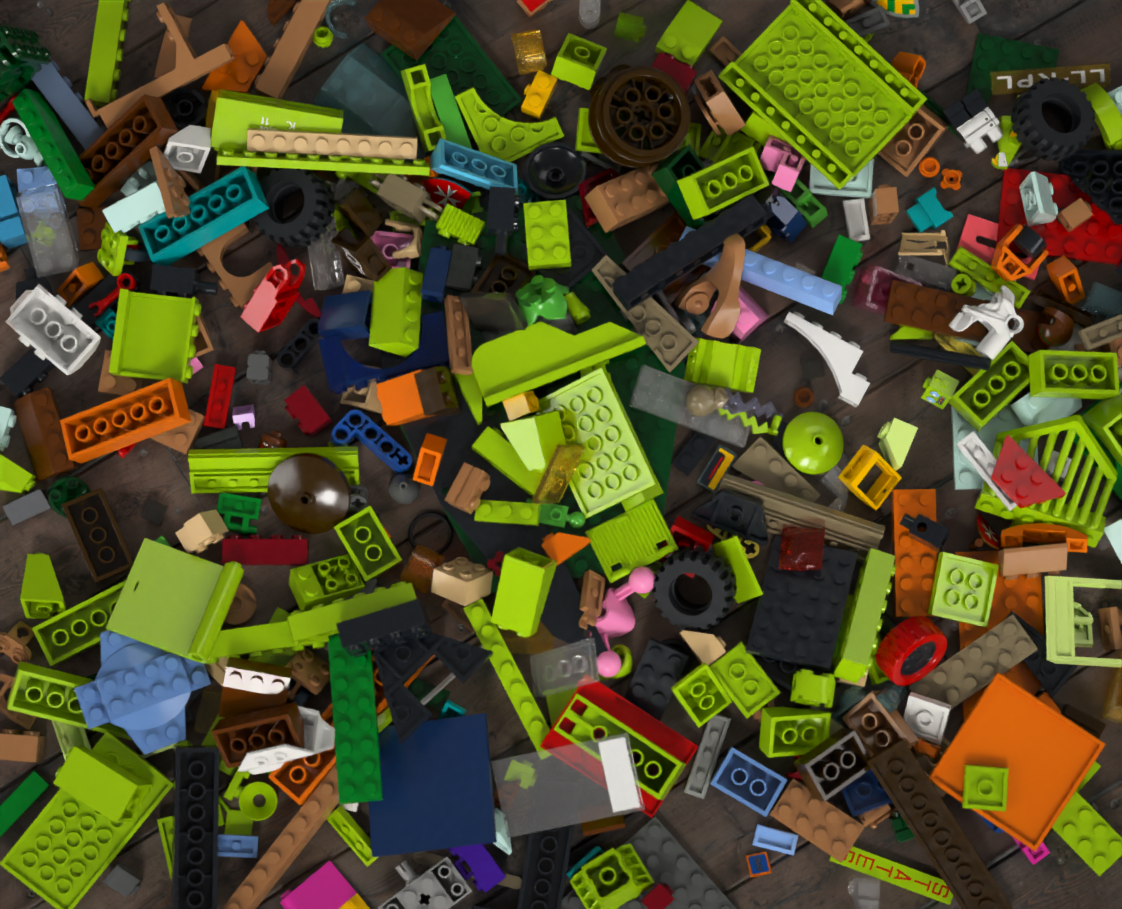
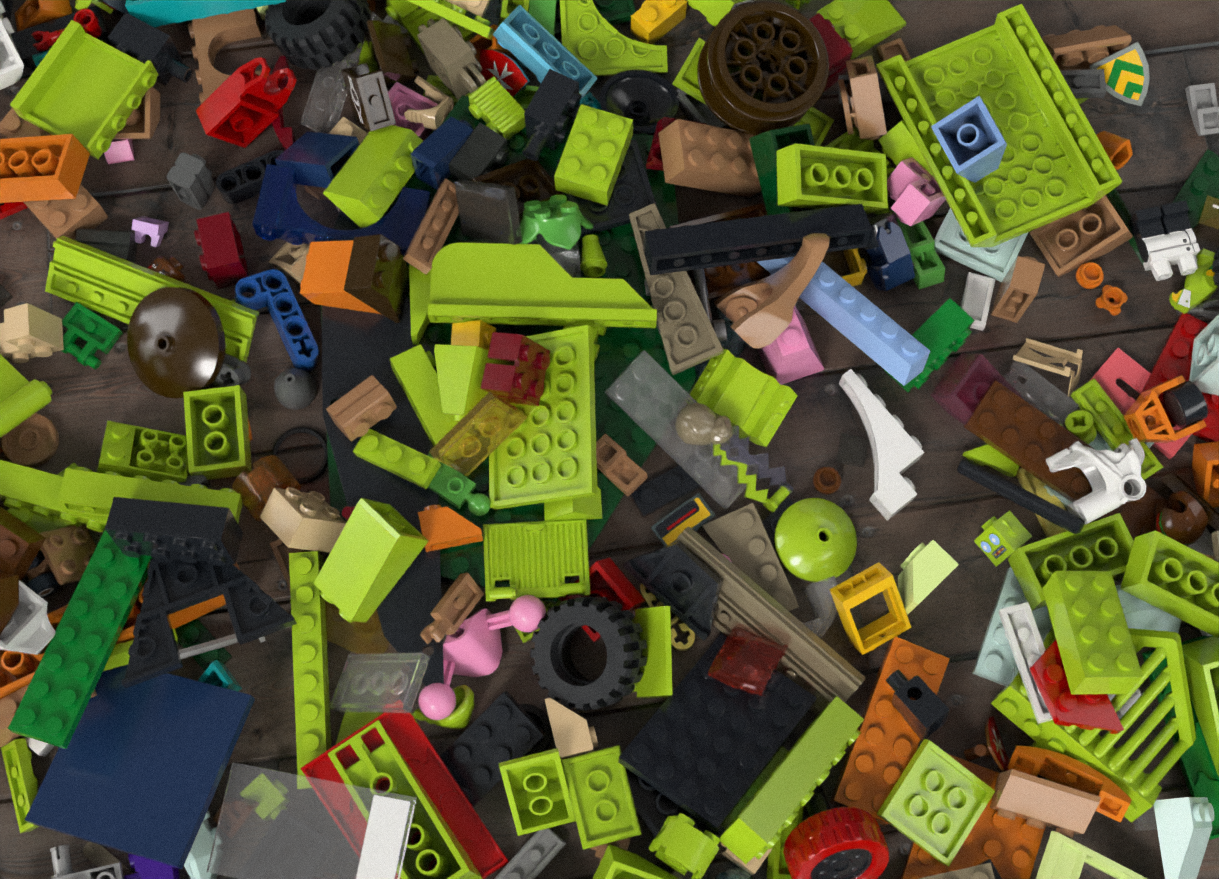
camera: 25 degrees right, 10 degrees down
(220, 396) = (133, 196): red plate -> none
(266, 552) = (94, 392): dark red brick -> none
(429, 459) = (333, 356): orange slope -> none
(573, 419) = (519, 382): none -> dark red piece
(660, 452) = (618, 466): none -> medium nougat slope
(808, 117) = (971, 140): none -> medium blue slope
(928, 212) = (1069, 325): teal piece -> none
(1021, 437) = (1091, 632): none -> lime brick

